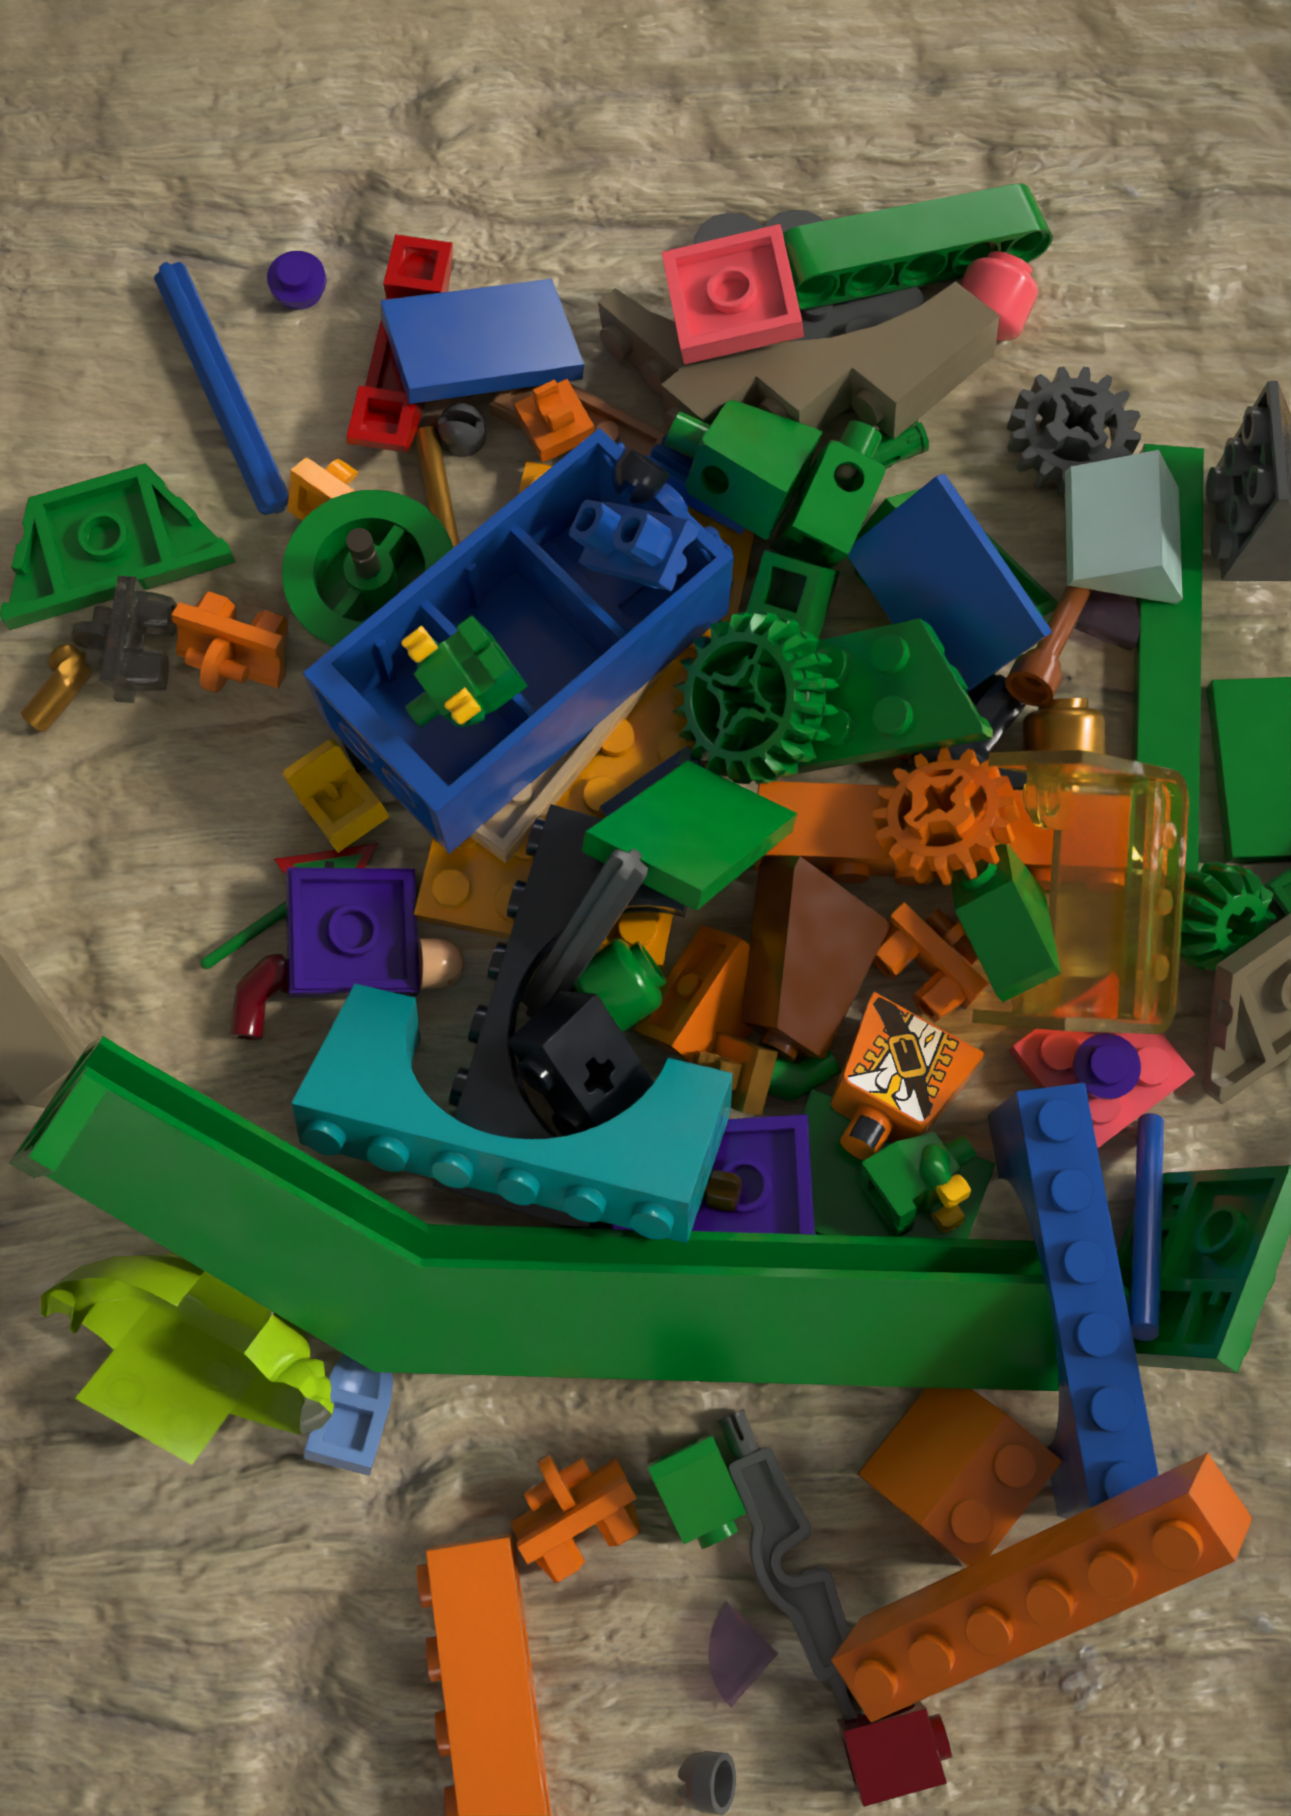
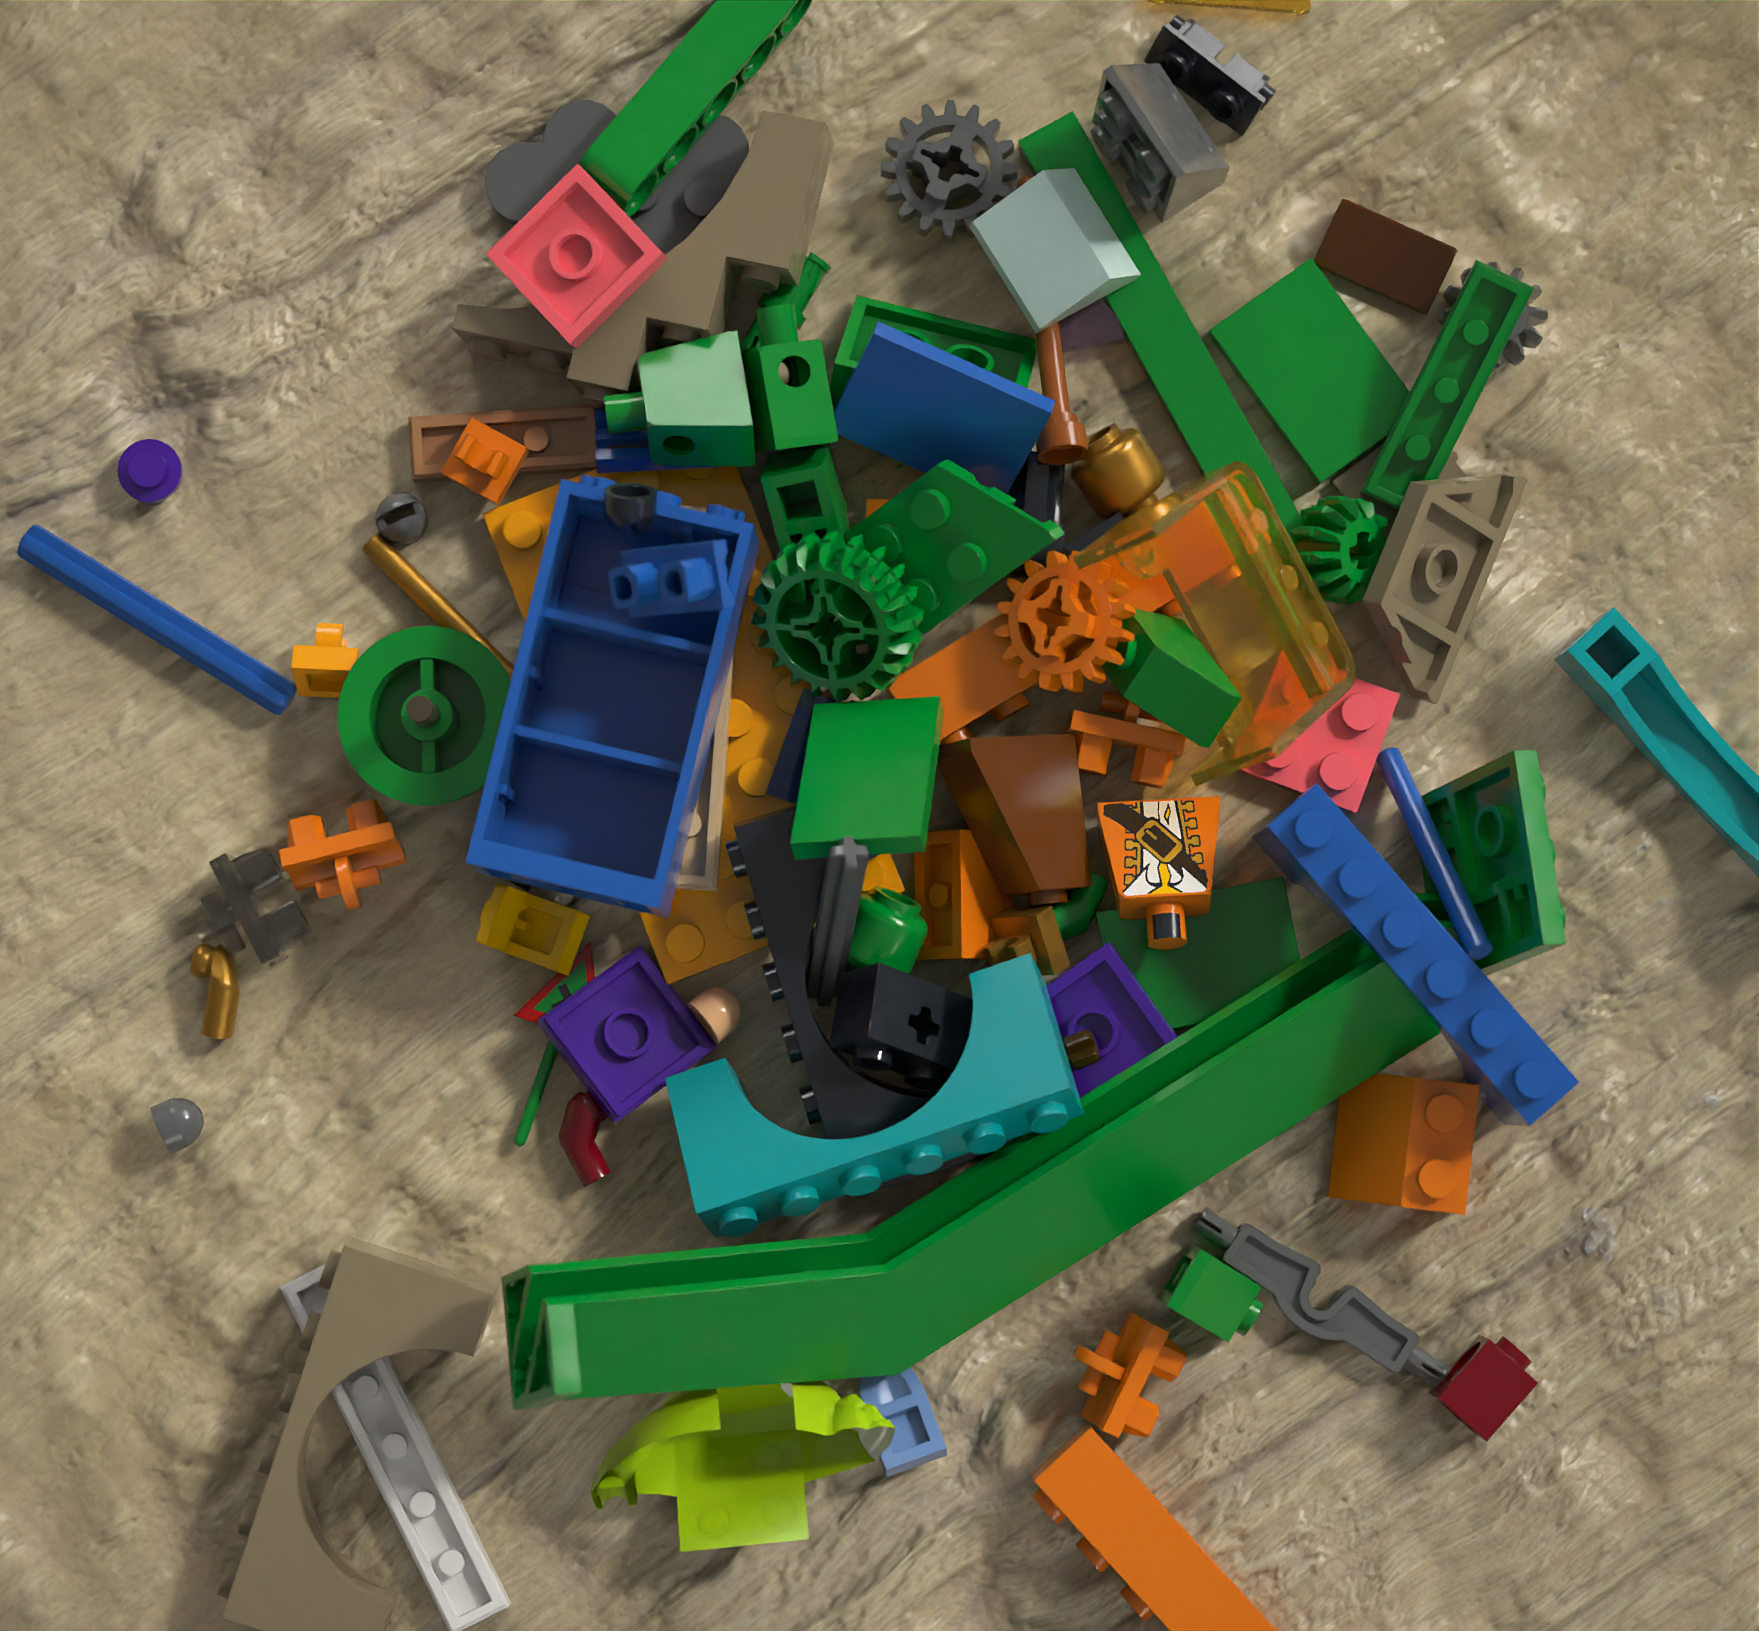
camera: 35 degrees left, 10 degrees up
(103, 529) = (159, 829): green wing -> none
(381, 409) = (297, 477): red slope -> none
(460, 675) = (607, 786): green piece -> none
(481, 340) = (367, 427): blue tile -> none
(709, 1782) = (1360, 1502): dark grey hinge -> none
(736, 1653) = (1320, 1395): tile -> none
(916, 1179) = (1230, 934): green piece -> none
(1005, 287) = (800, 80): coral head -> none
(1045, 1587) = (1517, 1198): orange brick -> none
(1107, 1066) = (1327, 743): dark purple plate -> none

